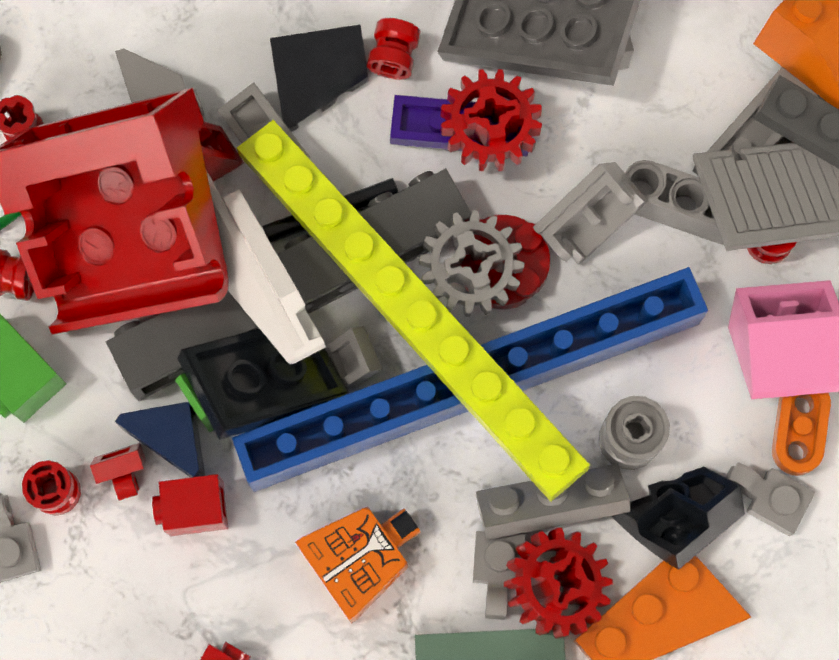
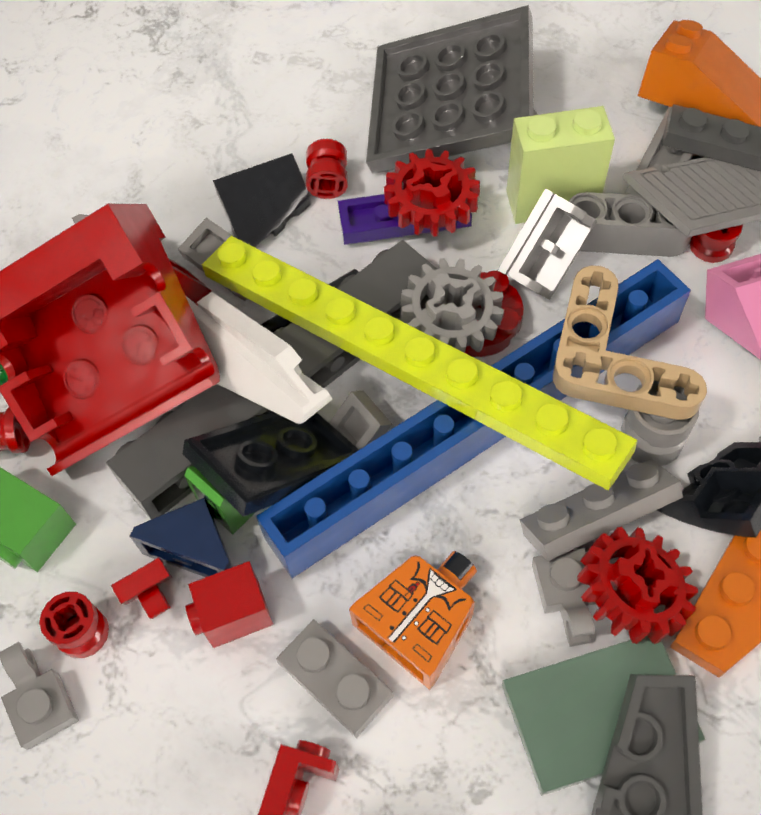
camera: 10 degrees left, 15 degrees down
(270, 592) = (335, 678): none -> light grey plate
(585, 358) = (592, 356): none -> tan beam
(630, 122) = (557, 153): none -> yellowish green brick

